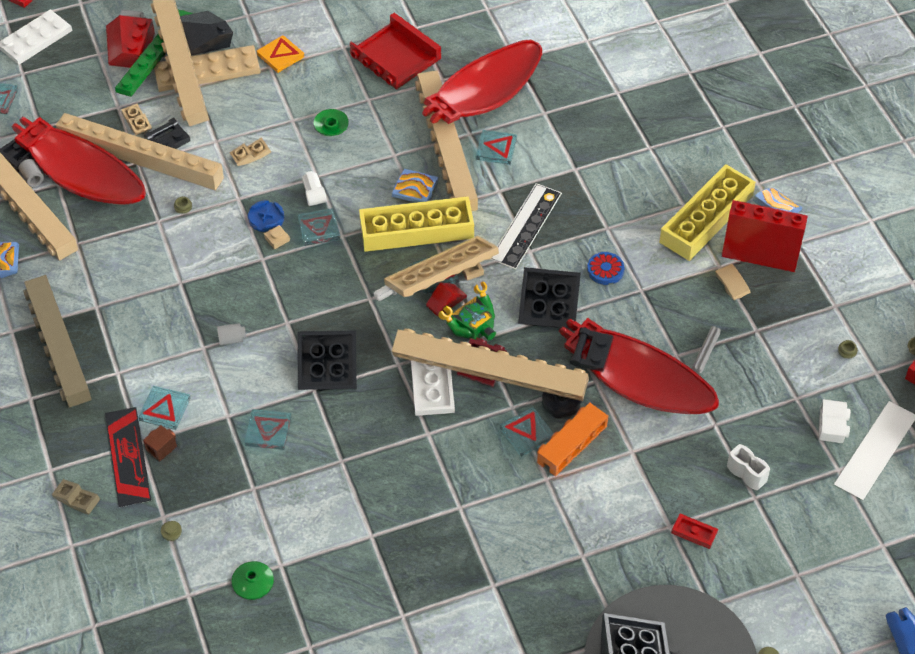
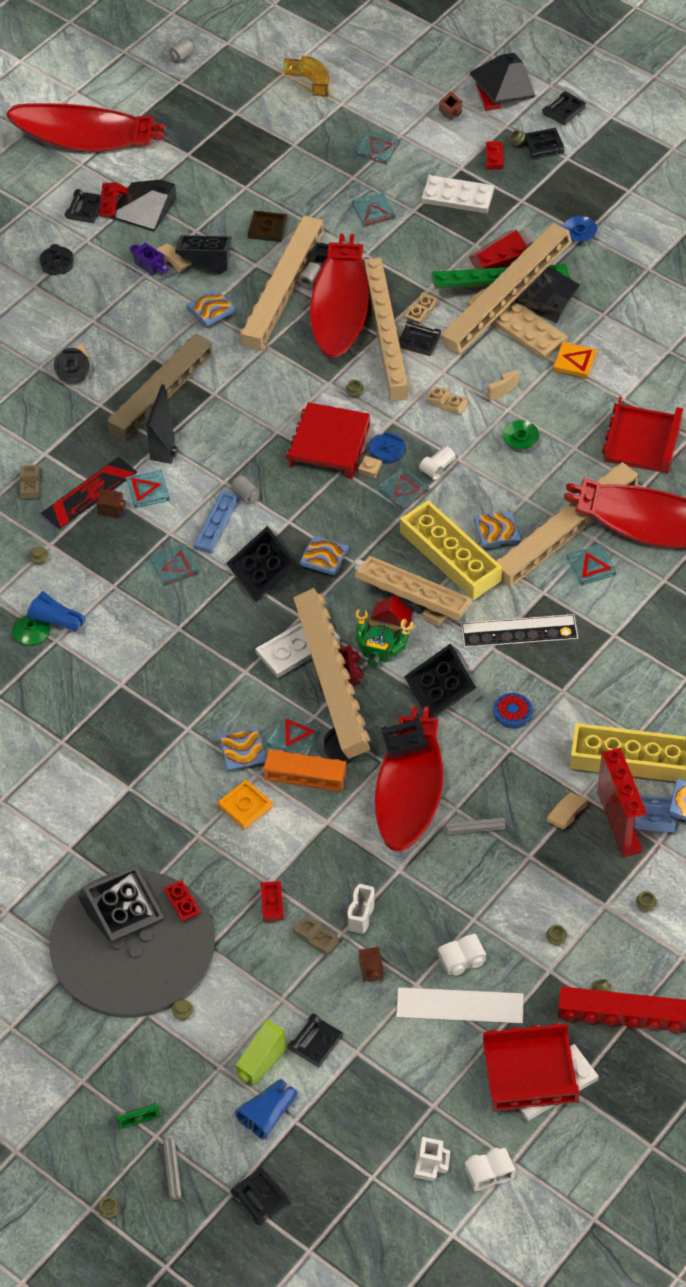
camera: 60 degrees right, 0 degrees up
(115, 358) = (160, 430): none -> black slope
(225, 247) = (329, 437): none -> red panel
(246, 374) = (216, 522): none -> medium blue tile
(250, 551) = (49, 611): none -> blue piece
(268, 108) = (507, 383): none -> tan slope
(349, 313) = (324, 555): none -> slope
(515, 474) = (242, 749): none -> slope
(574, 503) = (245, 804): none -> light orange tile
(656, 600) = (181, 901): none -> red slope
(748, 517) = (314, 935): none -> dark tan slope
(809, 488) = (371, 964): none -> copper brick
(850, 276) = (646, 901): none -> olive plate
(857, 614) = (261, 1053): none -> lime slope
(861, 565) = (321, 1043): none -> black plate

